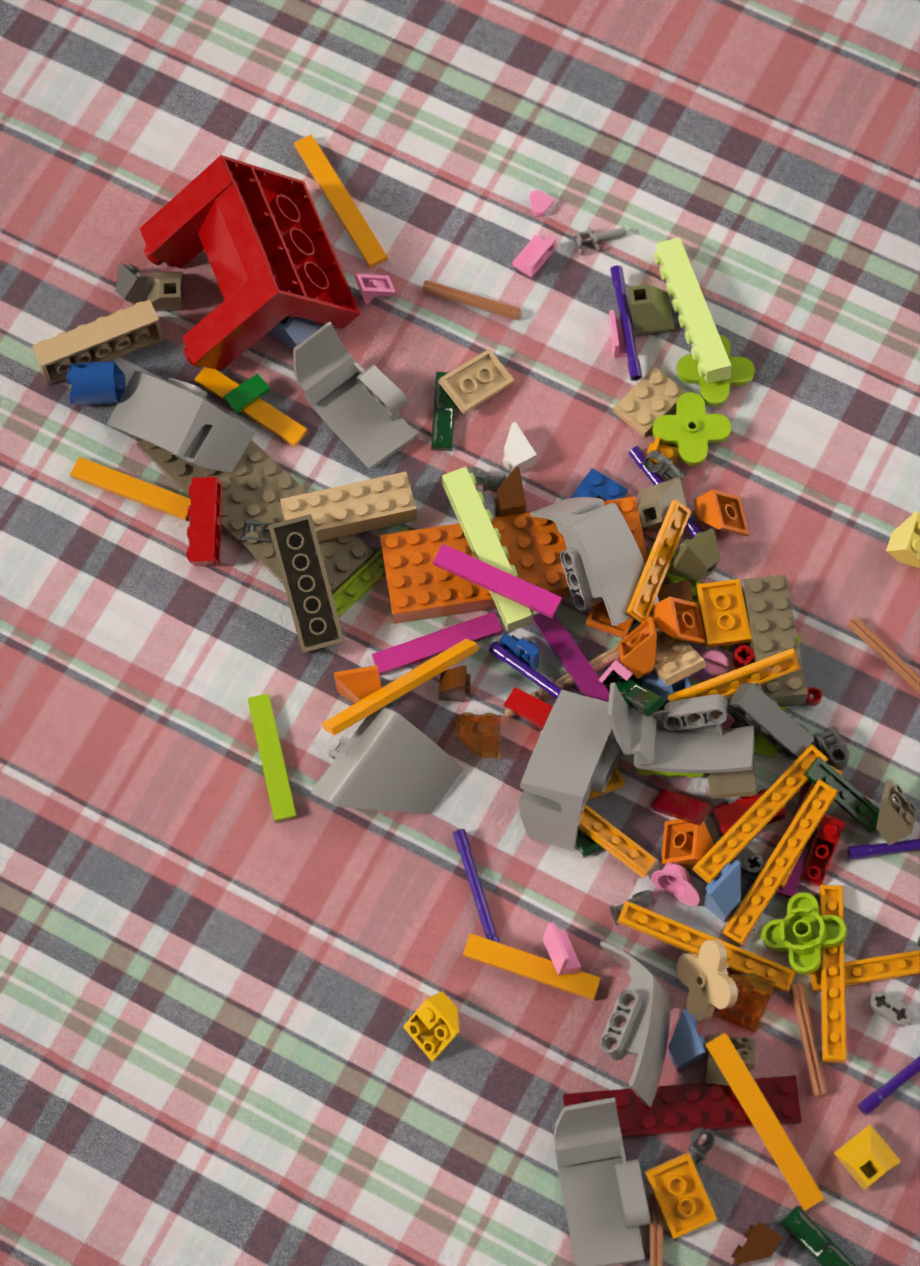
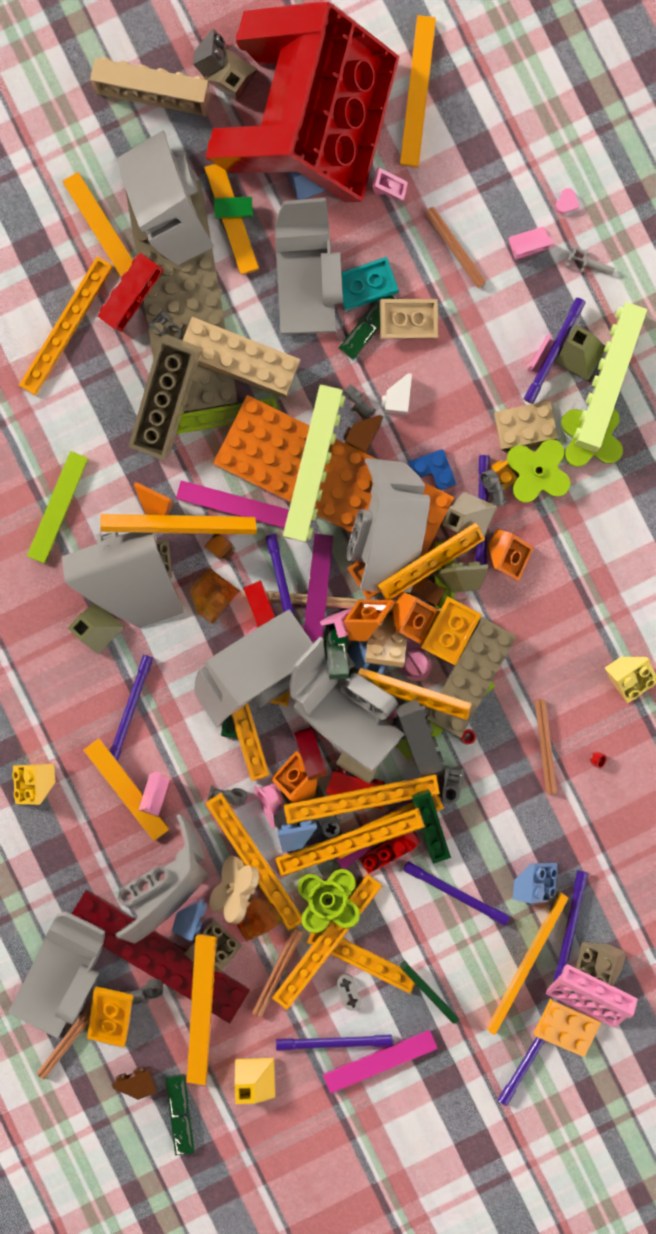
camera: 35 degrees right, 20 degrees up
(95, 383) = (126, 120): blue cylinder -> none
(163, 595) = (66, 326): none -> light orange tile
(390, 839) = (96, 628): none -> olive slope
(419, 376) = (368, 284): none -> teal tile
(497, 581) = (298, 498): dark pink tile -> none
(522, 649) = (288, 561): blue plate -> none
(745, 651) = (445, 672): red bush -> none
(895, 814) = (456, 866): dark tan slope -> none

